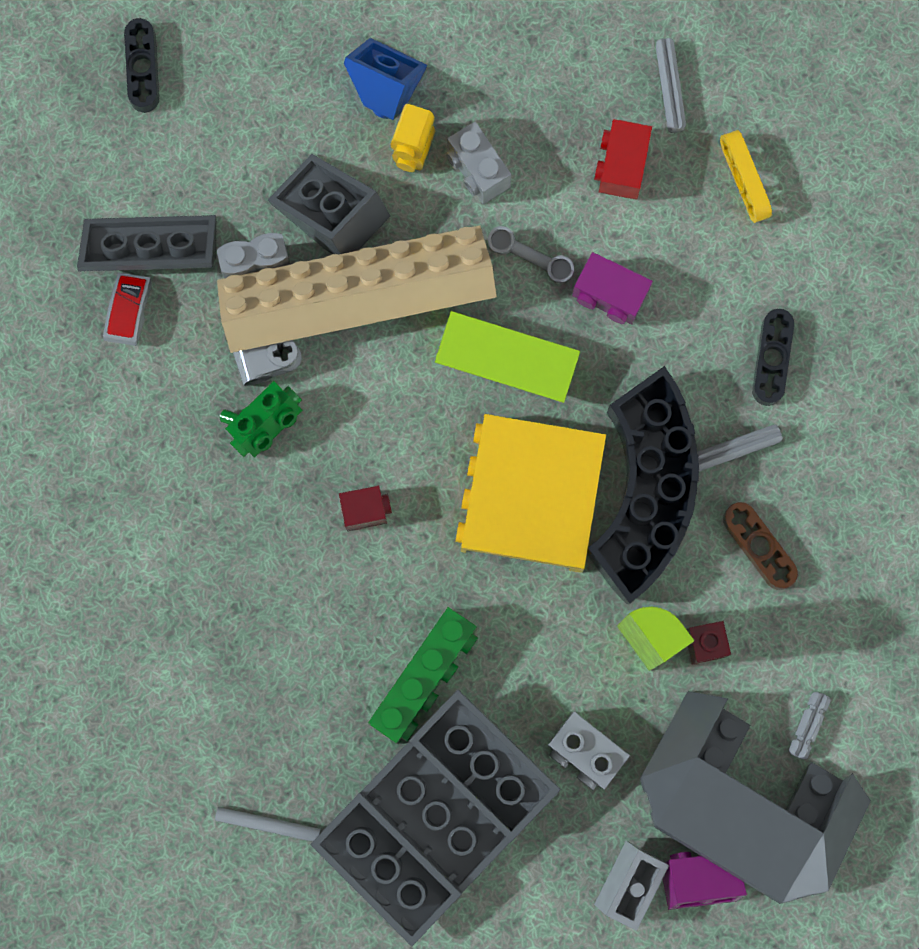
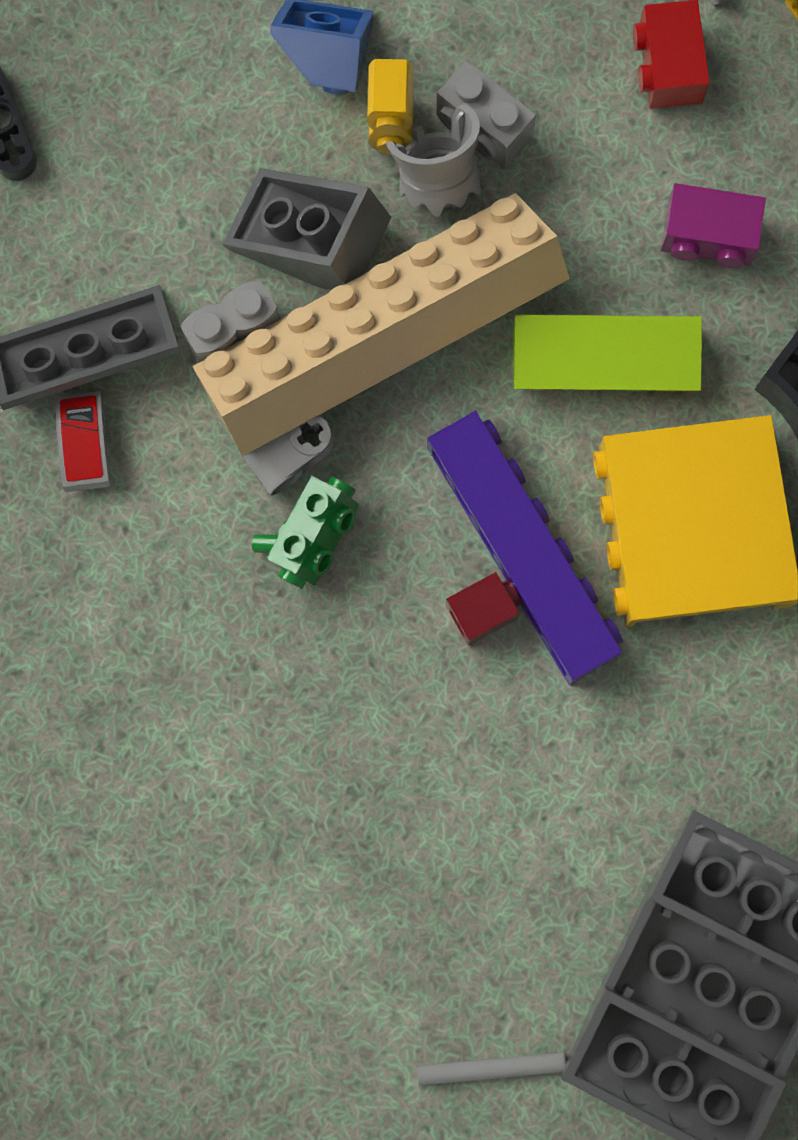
camera: 15 degrees left, 0 degrees up
(405, 474) = (523, 546): none -> dark purple brick
(423, 675) = (635, 806): green brick -> none
(433, 190) = (440, 166): none -> light grey hat
(503, 242) = (633, 221): light grey bar -> none

